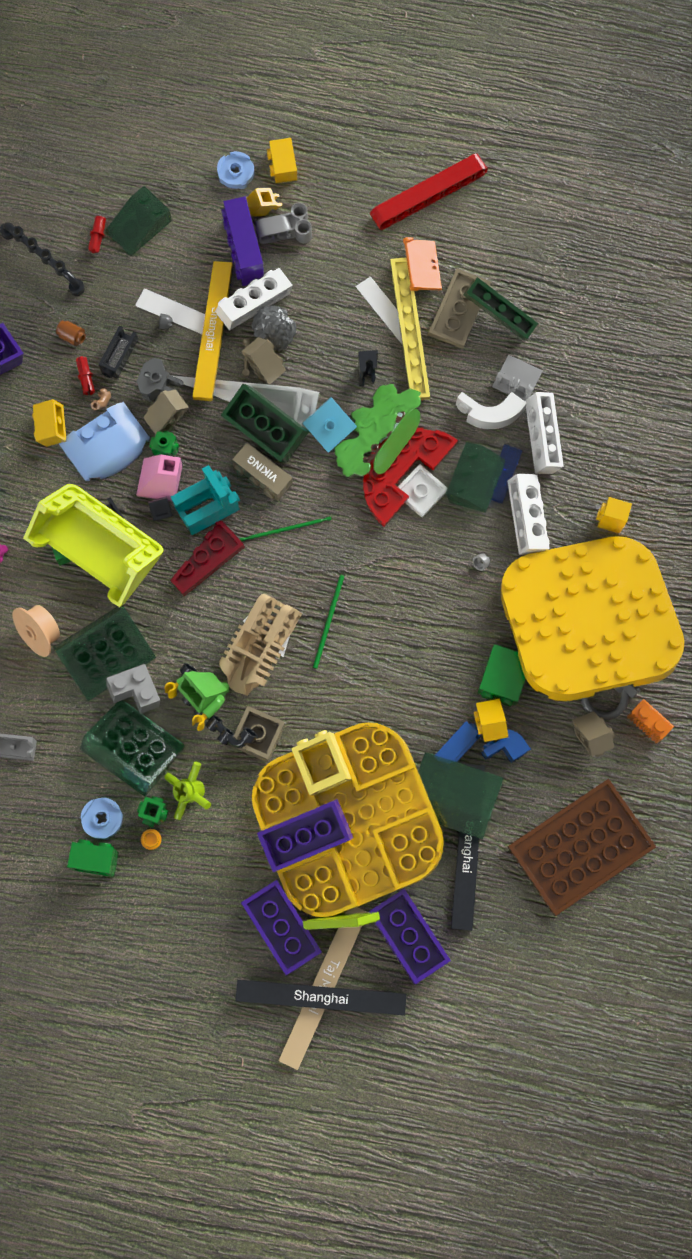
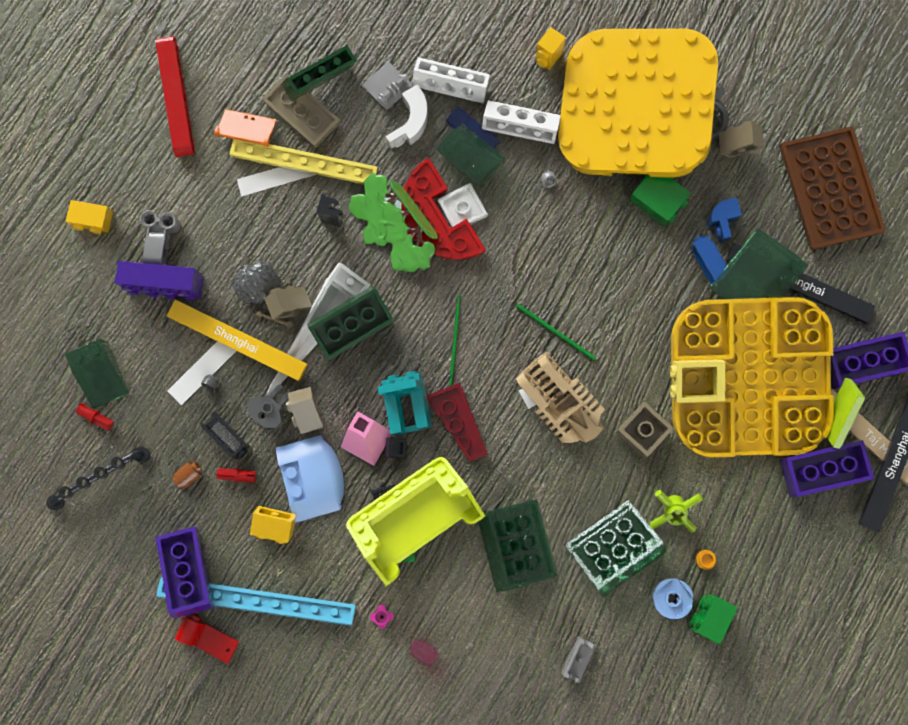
camera: 60 degrees left, 5 degrees up
(36, 628) = (476, 601): light nougat piece -> none
(103, 401) = (270, 468): medium nougat arm -> none
(134, 683) = (561, 523): light grey brick -> none
(147, 806) = (690, 552): green brick -> none
(170, 443) = (342, 426): green brick -> none
(203, 693) = (590, 466): bright green torso -> none
(215, 723) = (622, 465): black bar -> none
(235, 180) = (90, 269): light blue plate -> none
(235, 316) = (231, 316): white brick -> none
(262, 201) = (125, 248): yellow brick -> none
(262, 472) = (394, 342): dark tan brick -> none
(305, 835) = (758, 418): dark purple brick -> none
(329, 424) = (372, 265): medium azure plate -> none
(491, 720) = (701, 221): yellow brick -> none
(650, 721) = (742, 89): orange brick -> none

